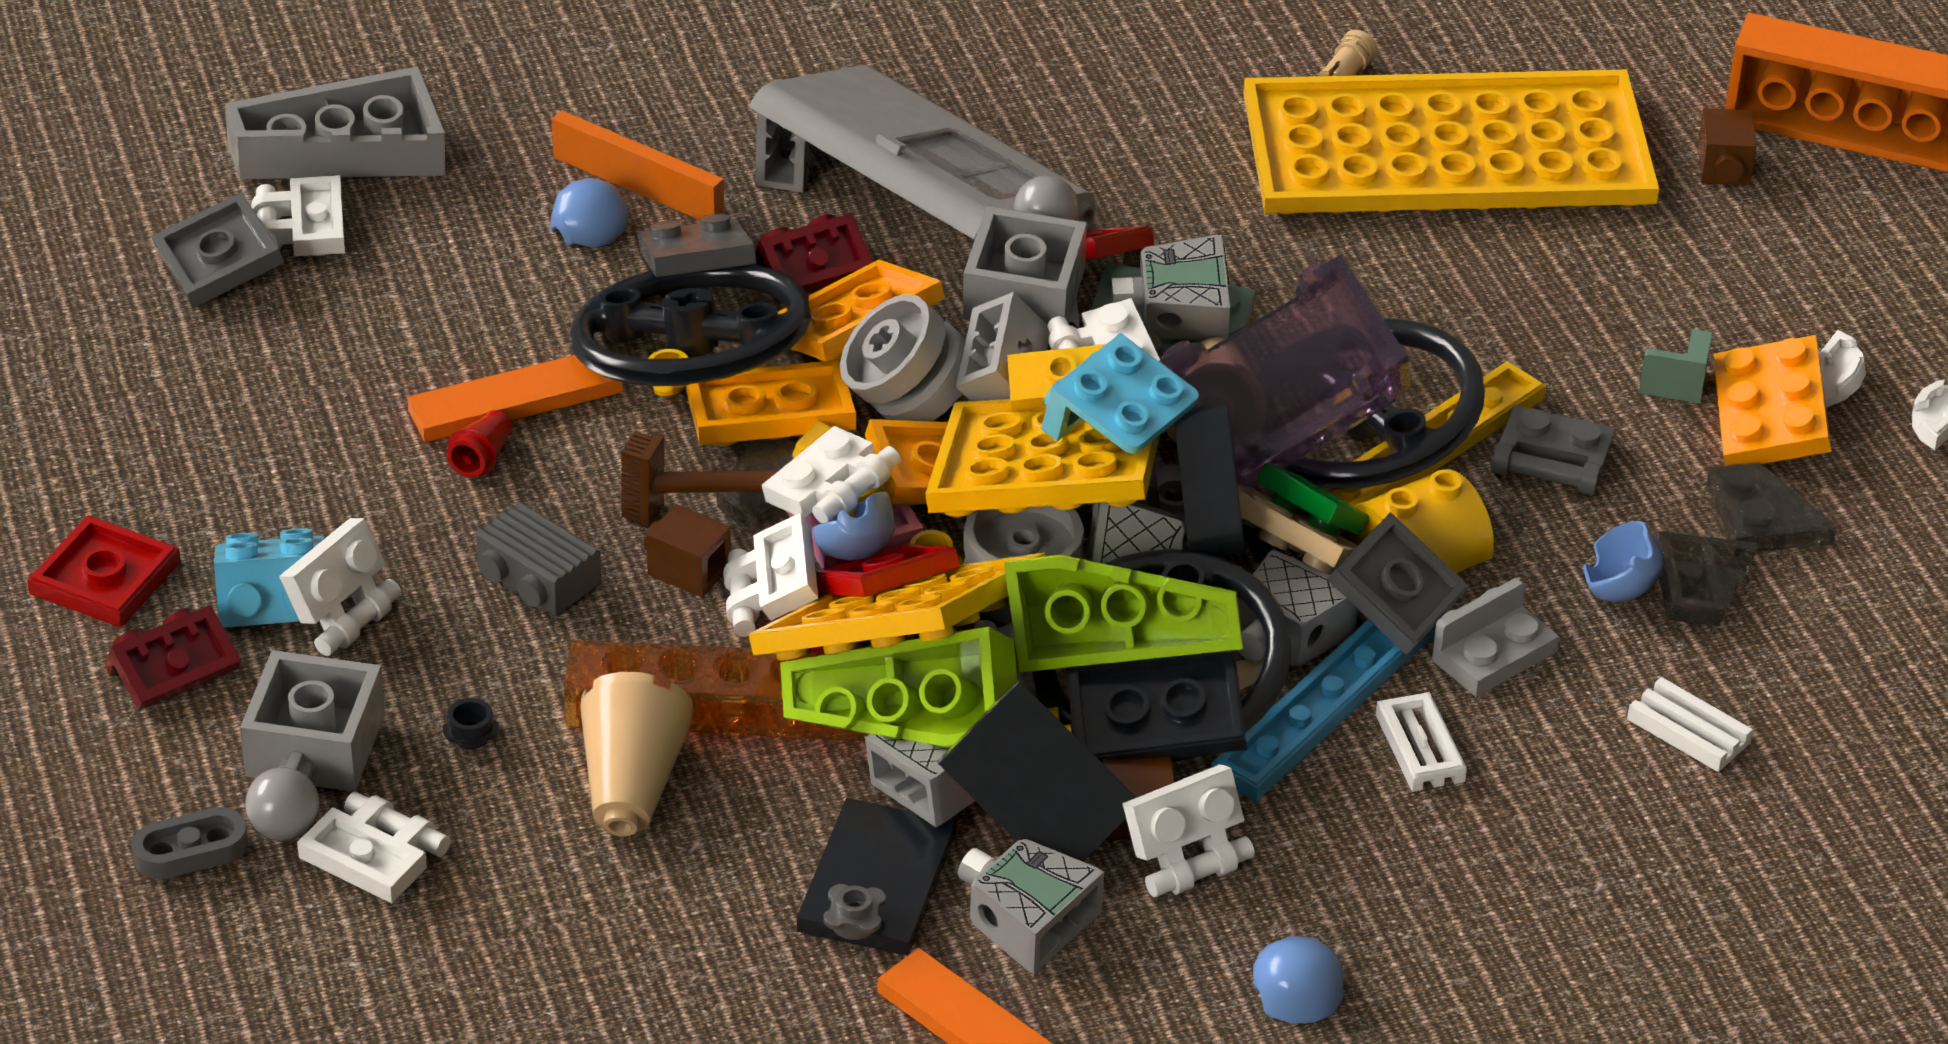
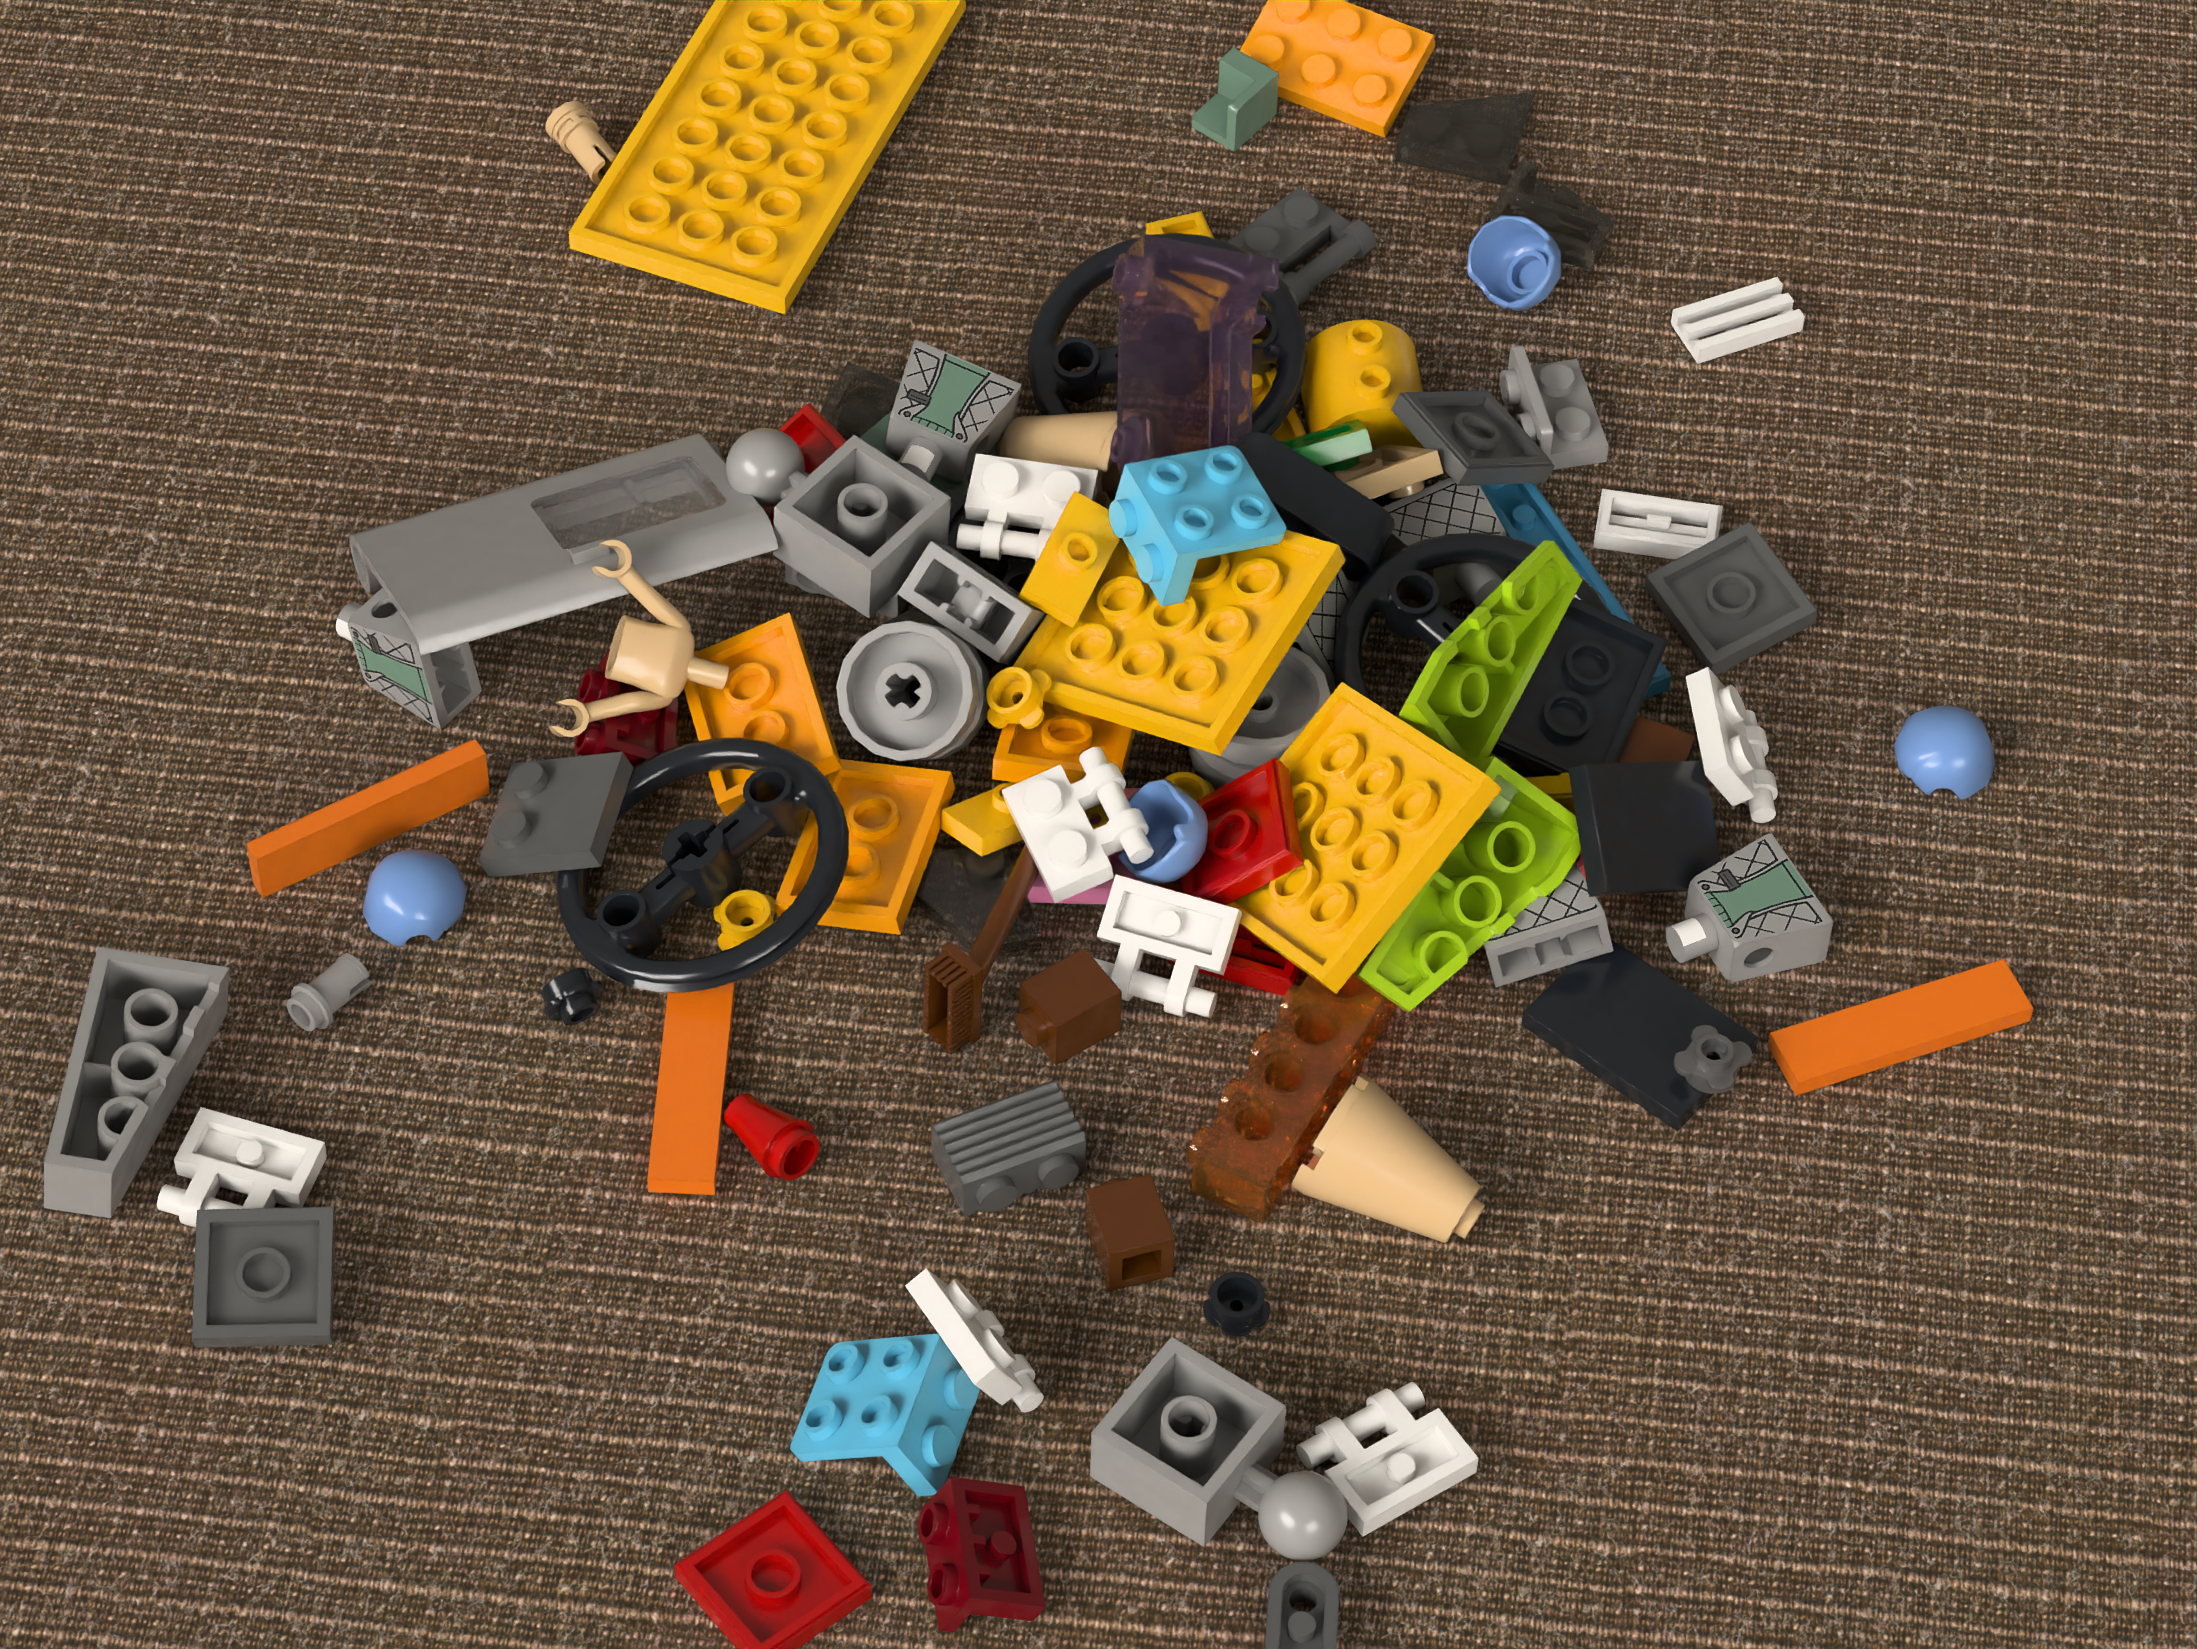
camera: 65 degrees left, 10 degrees up
(478, 203) = (316, 1002): none -> light grey pin
(497, 643) = (1129, 1232): none -> reddish brown brick
(545, 312) = (572, 996): none -> black plate
(843, 218) = (645, 654): none -> tan piece
(931, 408) = (1007, 688): none -> yellow plate
(1364, 799) = (1731, 599): none -> dark grey plate

